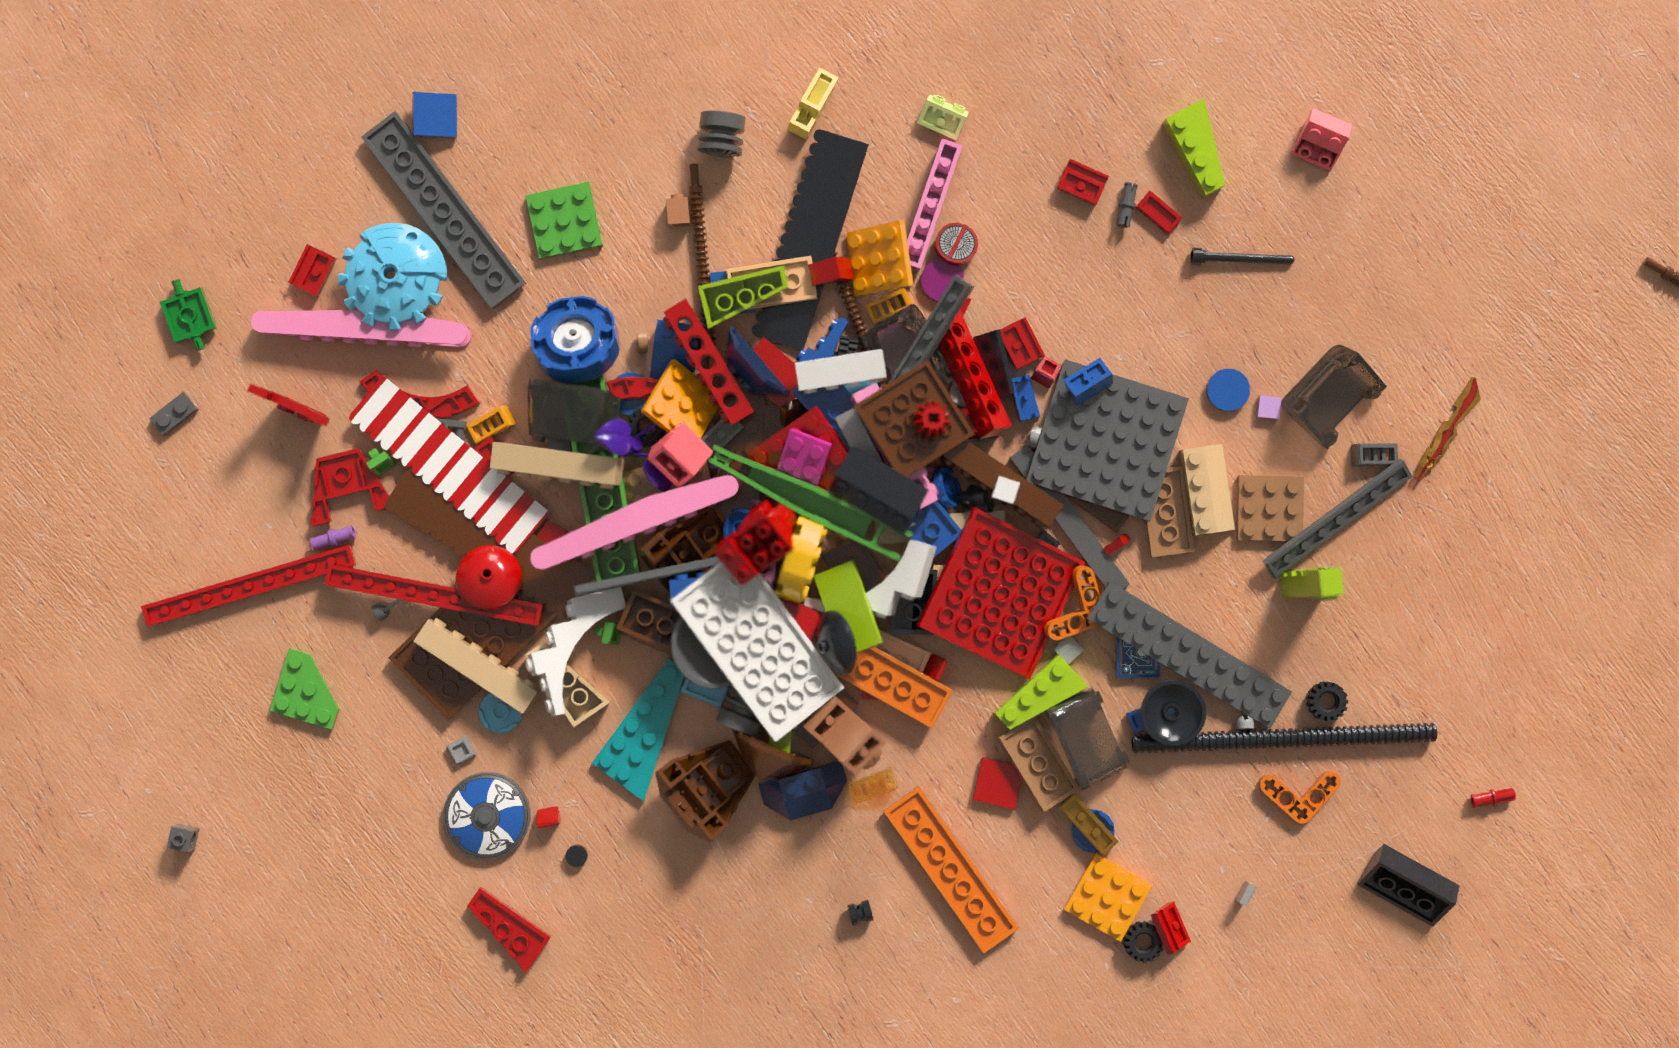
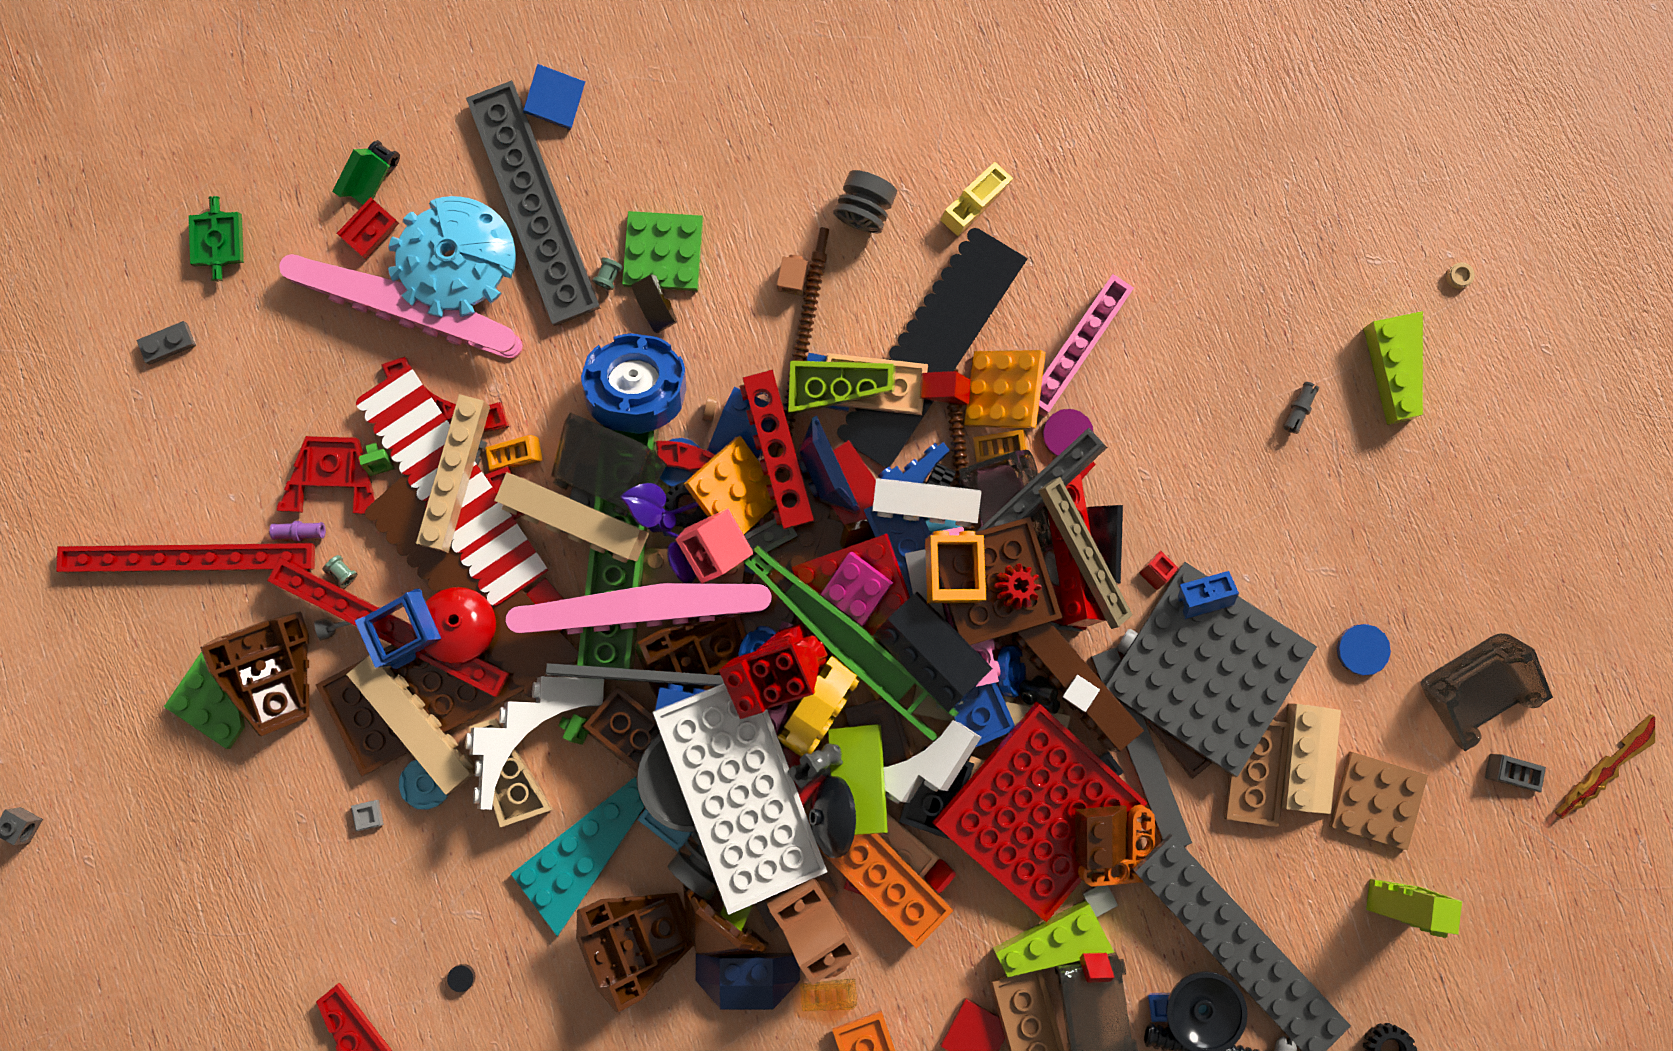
camera: 20 degrees right, 5 degrees down
(290, 406) = (290, 365): red wing -> none
(295, 228) = (361, 176): none -> green panel
(306, 205) = (390, 157): none -> black bush
(345, 657) = (264, 671): none -> reddish brown wedge
(378, 561) = (339, 571): none -> sand green bush
(449, 455) = (453, 474): none -> tan brick
(460, 579) = (420, 620): none -> blue piece
(487, 815) = (372, 900): dish -> none
(524, 253) = (607, 273): none -> sand green bush
(548, 817) = (441, 923): slope -> none
(570, 268) = (653, 304): none -> dark brown slope
(811, 605) = (815, 764): none -> dark grey animal
(883, 441) = (937, 595): none -> light orange window
(942, 116) = (1118, 253): yellowish green bracket -> none
(956, 243) = (1095, 397): tile -> none
(979, 376) = (1085, 552): none -> dark tan plate
(1021, 343) = (1140, 530): red plate -> none
(1024, 399) = (1130, 589): blue hinge -> none
(1054, 598) = (1101, 836): none -> reddish brown slope
(1077, 701) = (1096, 967): none -> tile
(1082, 182) = (1257, 368): red plate -> none
(1121, 541) = (1191, 792): red tile -> none
(1133, 662) = (1172, 937): slope -> none
(1158, 212) = (1334, 426): red tile -> none
(1201, 256) = (1369, 488): black piece -> none
(1230, 56) = (1460, 275): none -> tan tile
(1268, 407) = (1406, 683): lavender tile -> none
(1322, 139) = (1543, 395): coral slope -> none
(1337, 518) = (1455, 835): dark grey tile -> none

